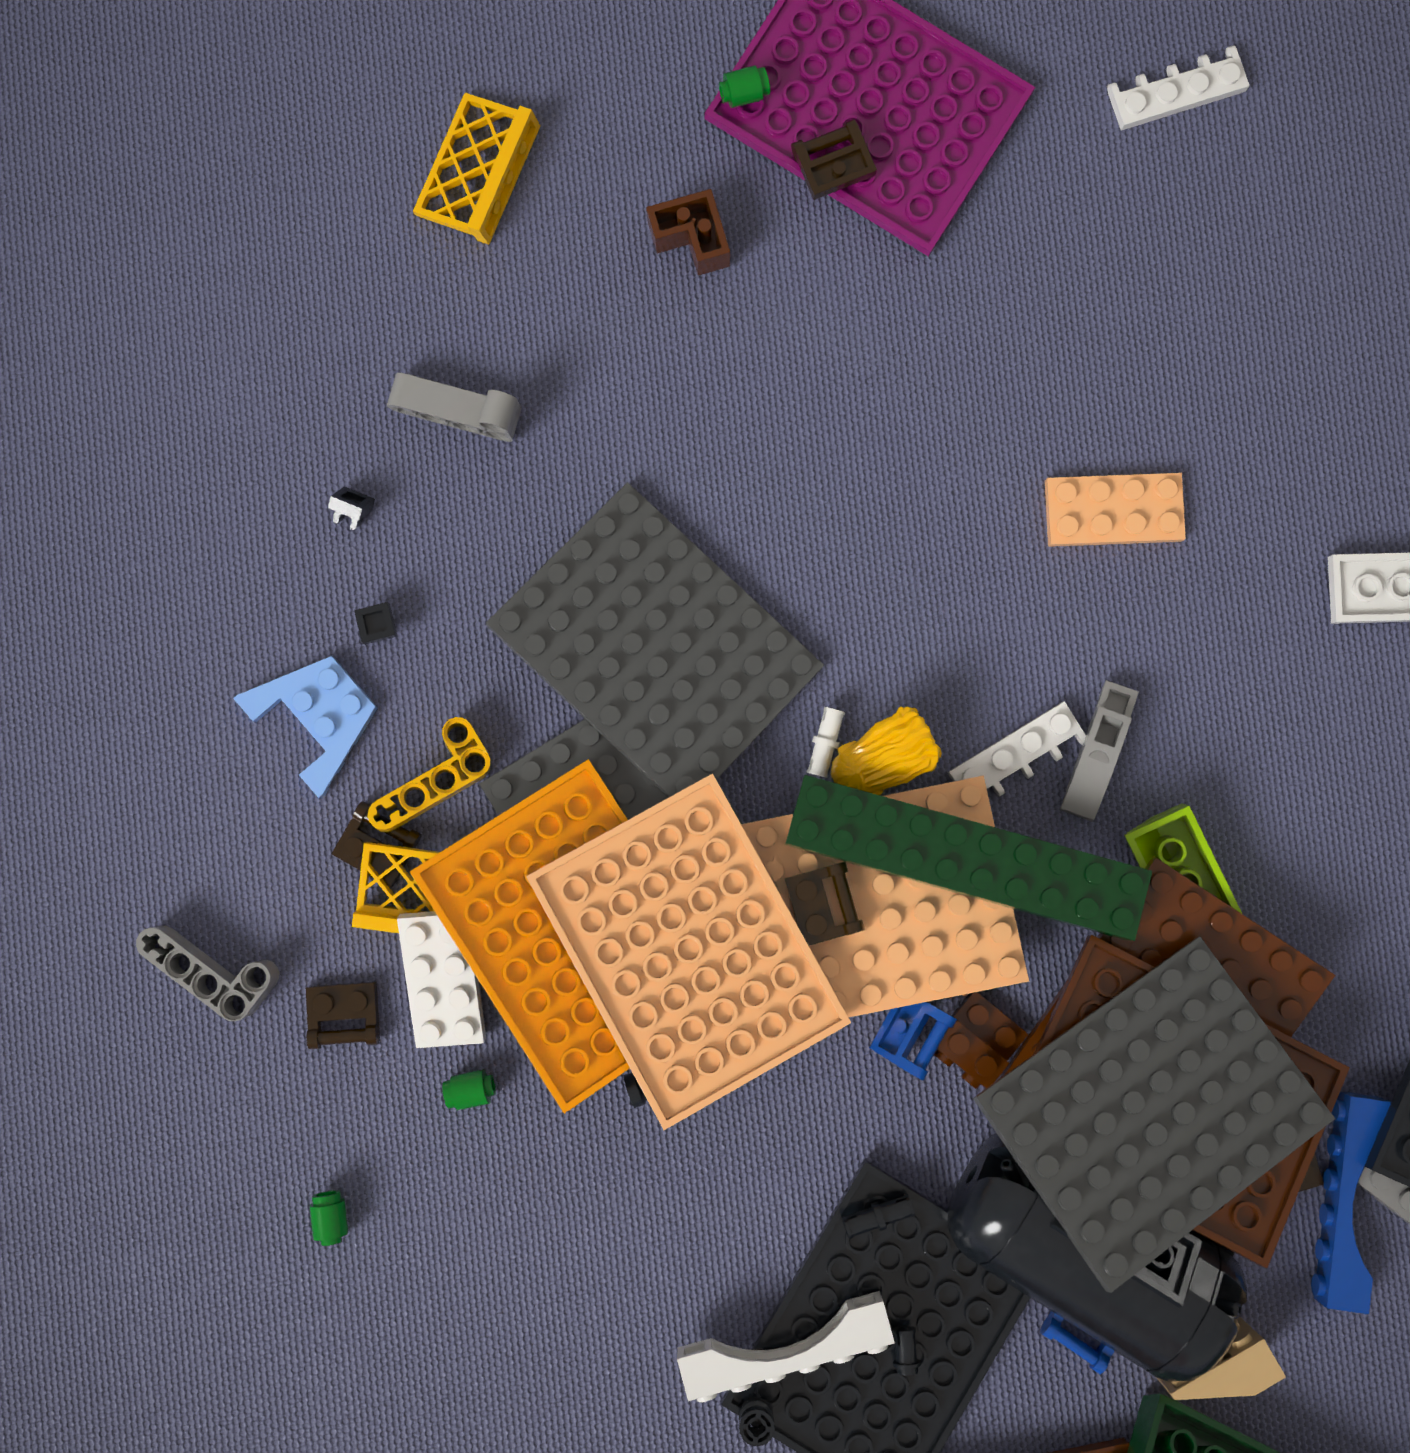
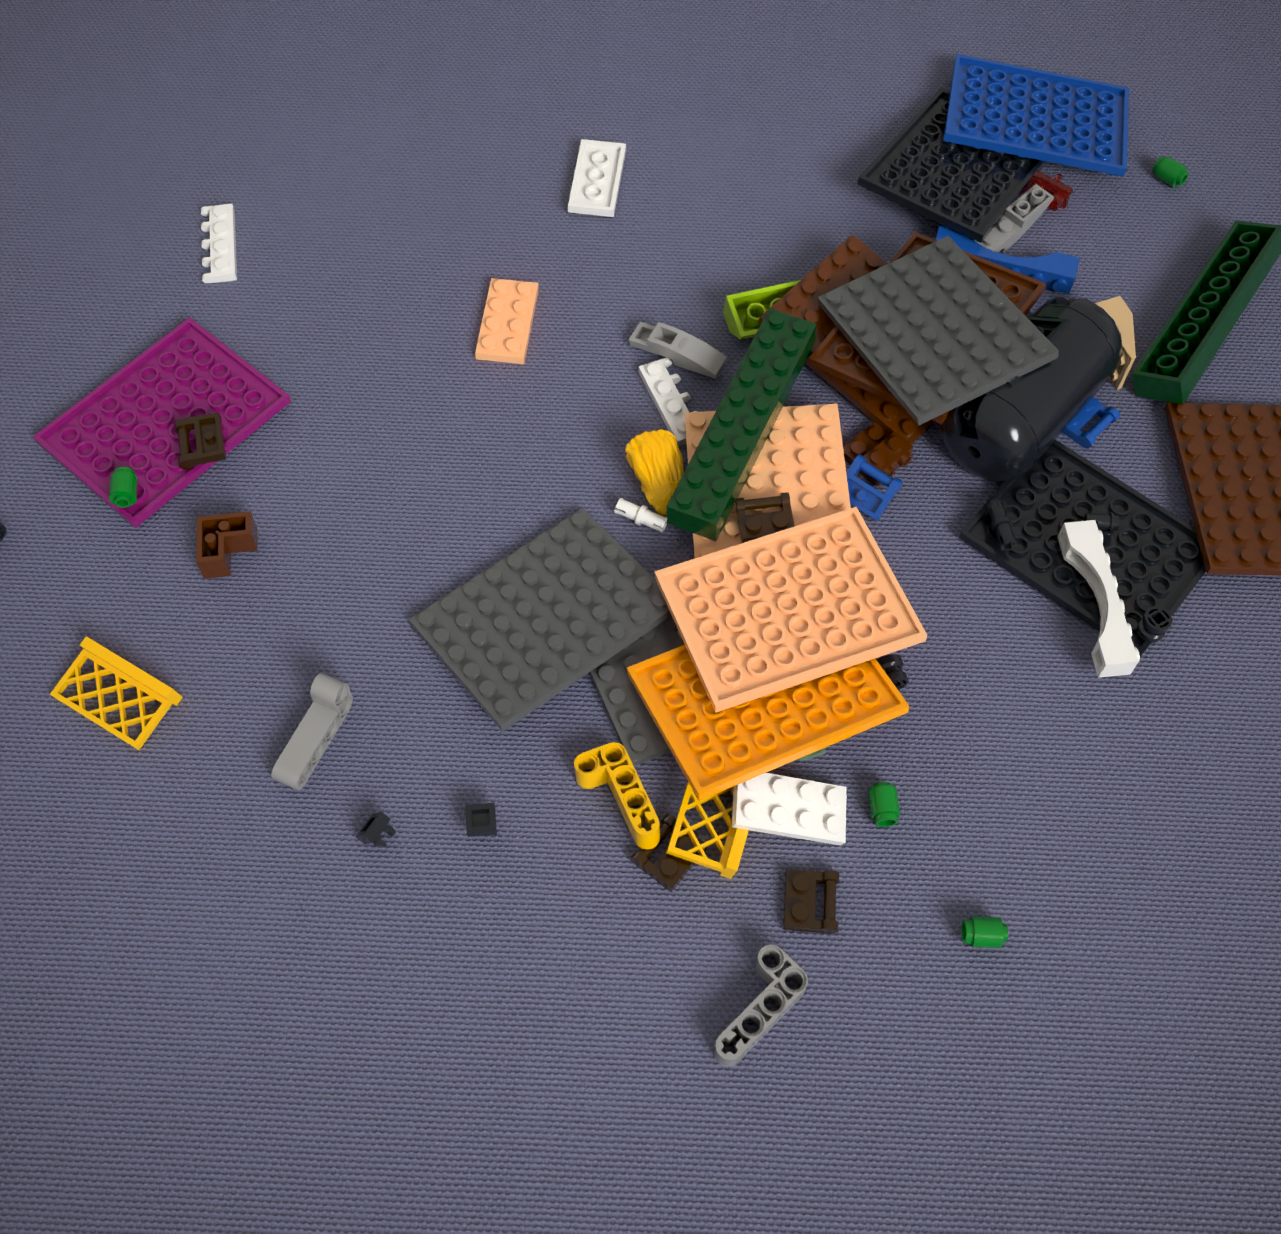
camera: 85 degrees left, 25 degrees down
(328, 707) = (544, 876): light blue wing -> none

